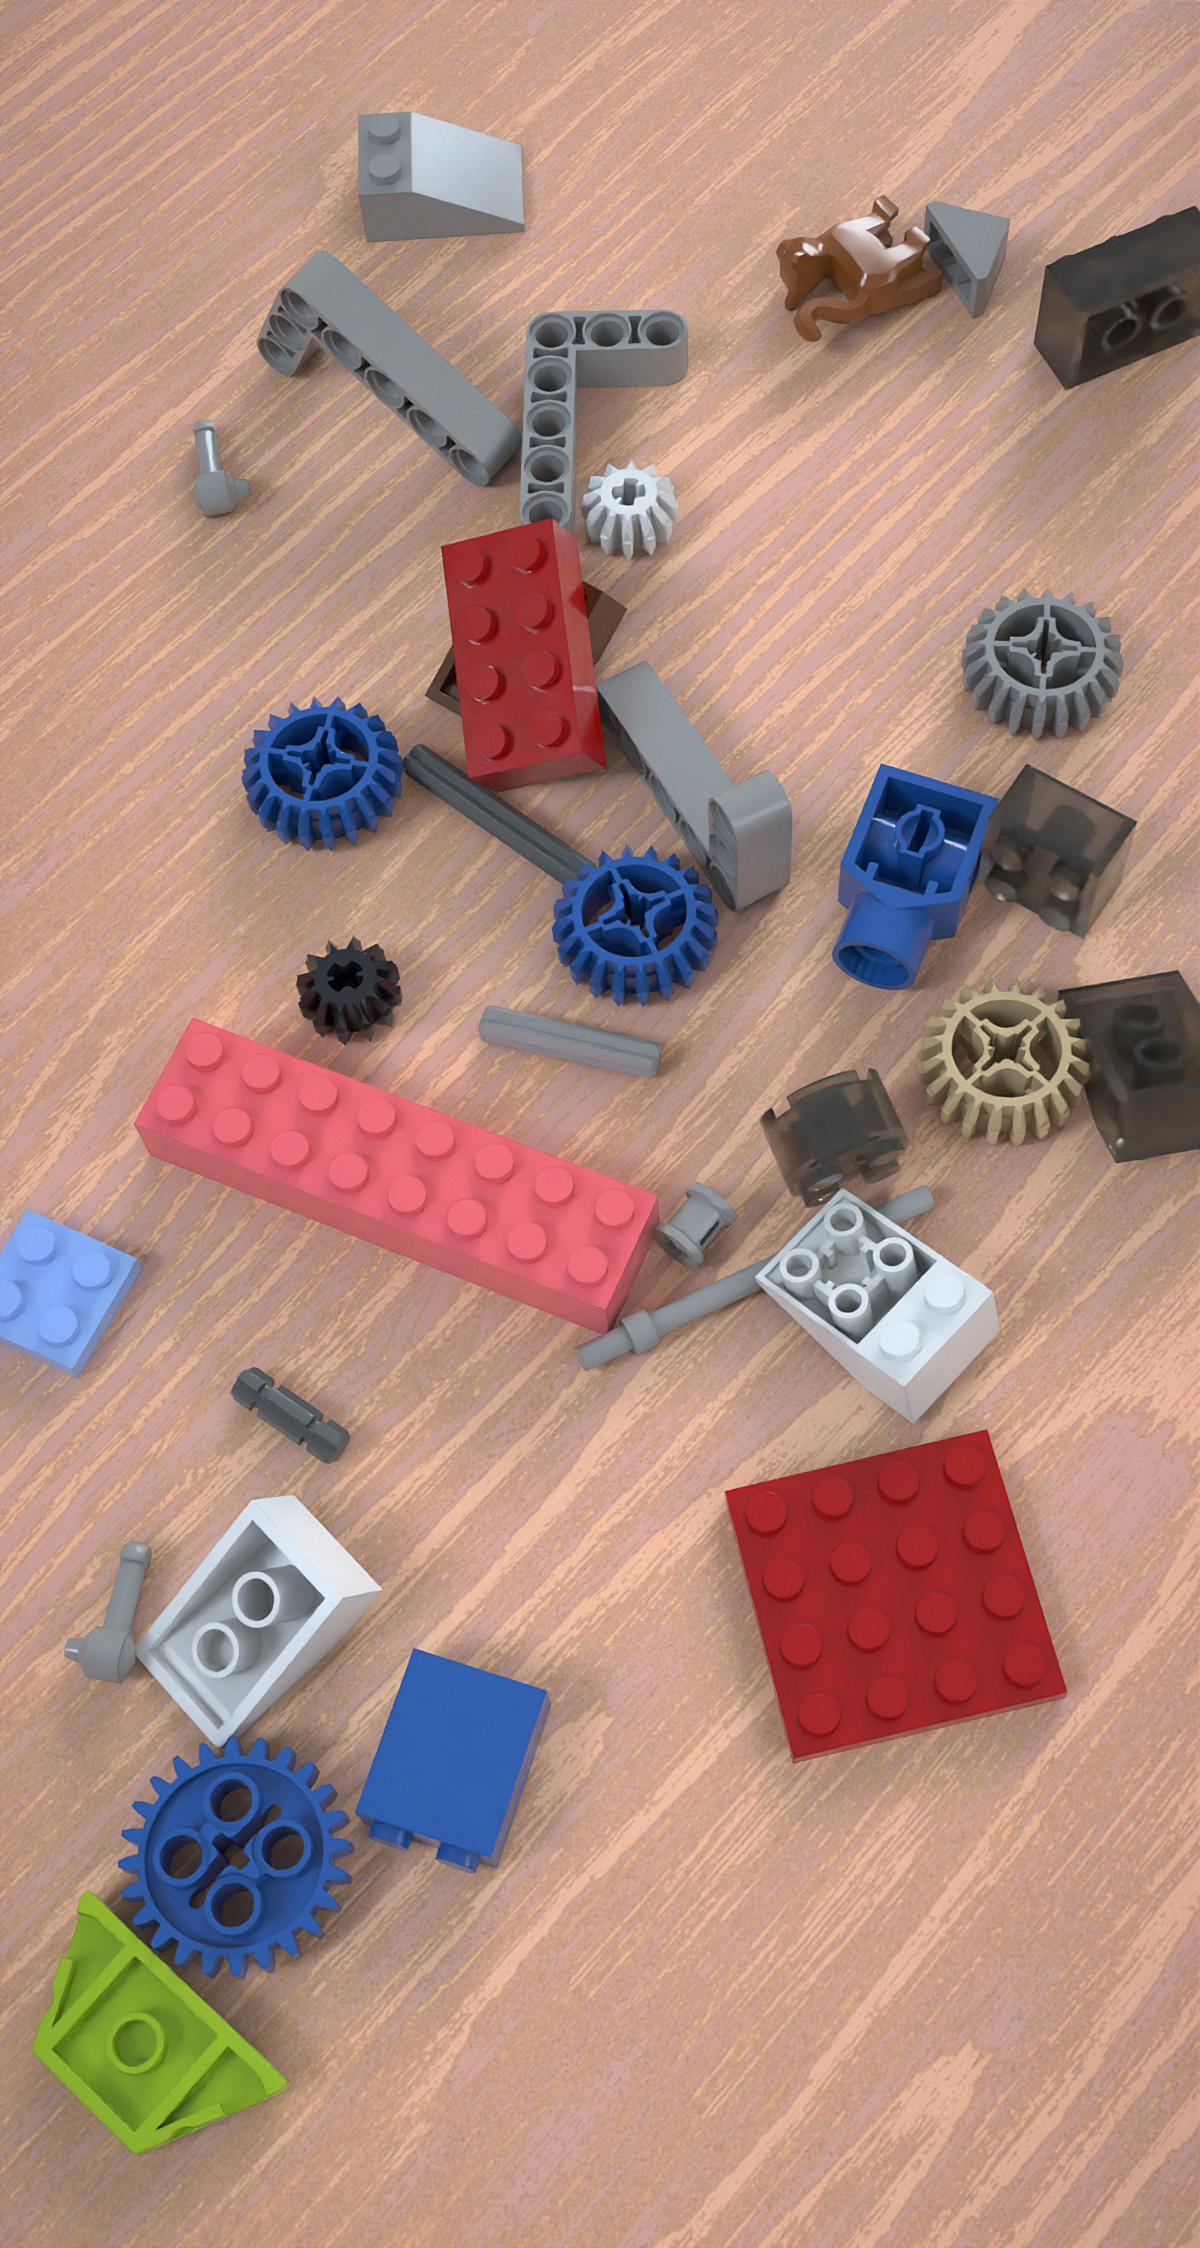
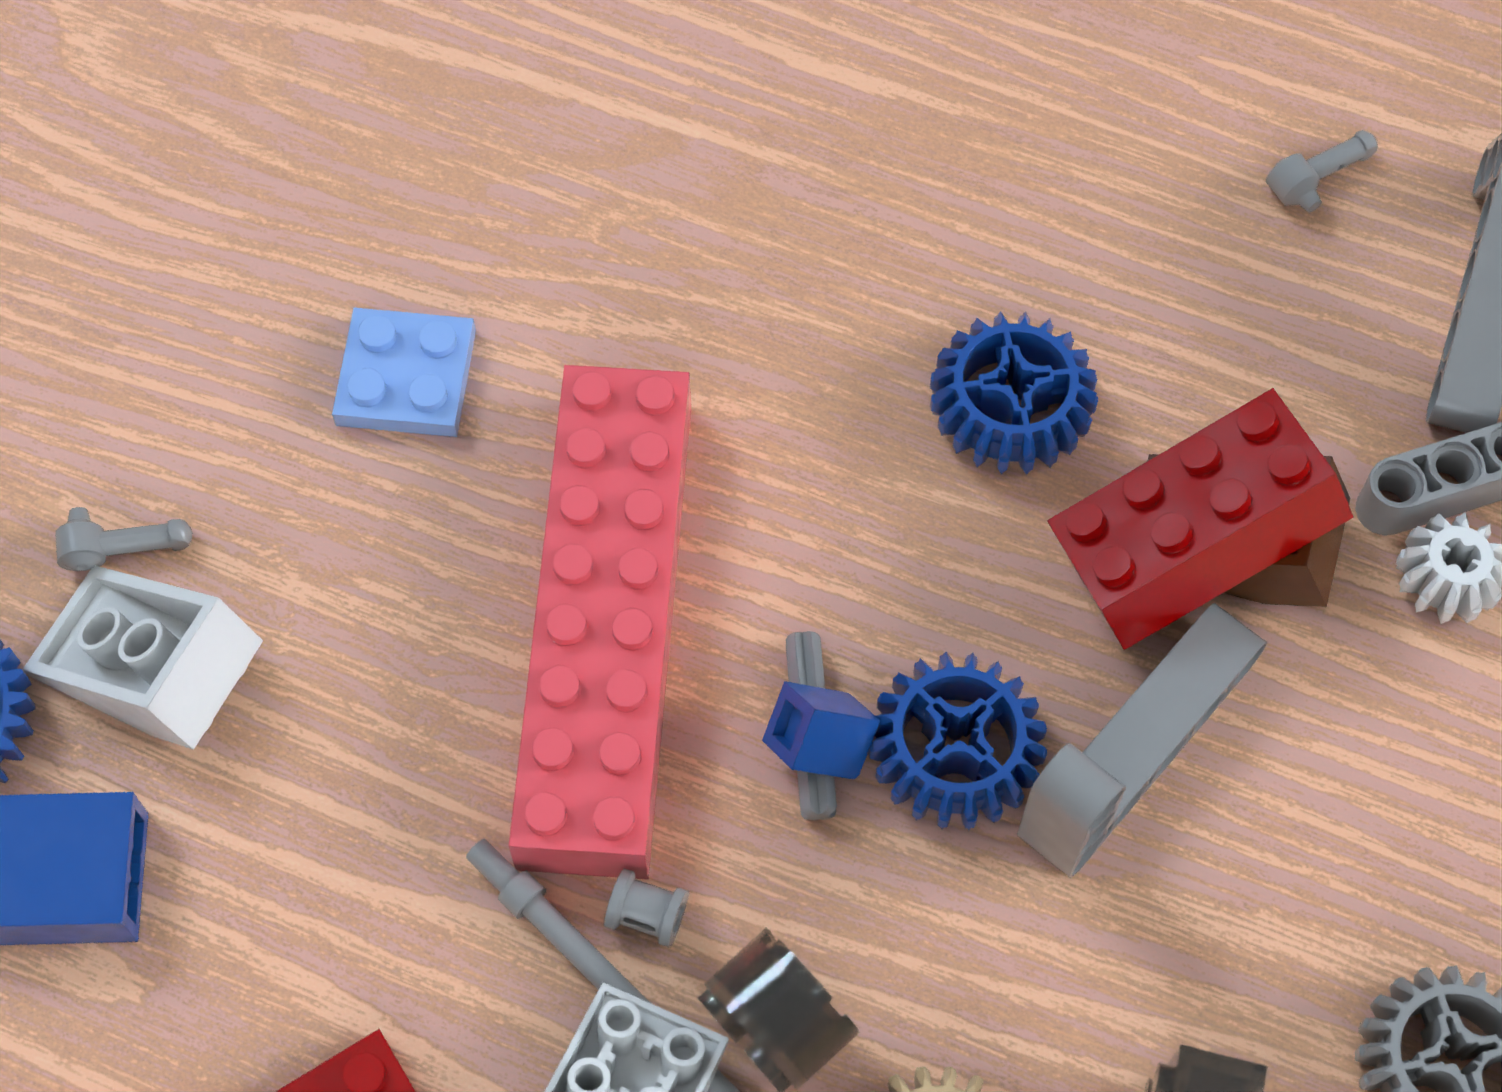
camera: 65 degrees right, 0 degrees up
(290, 1415) = (345, 612): dark grey axle -> none
(349, 990) = (762, 496): black gear -> none
(494, 814) = (1033, 572): dark grey axle -> none
(586, 1026) = (820, 730): none -> blue panel
(907, 874) = (1116, 990): blue brick -> none

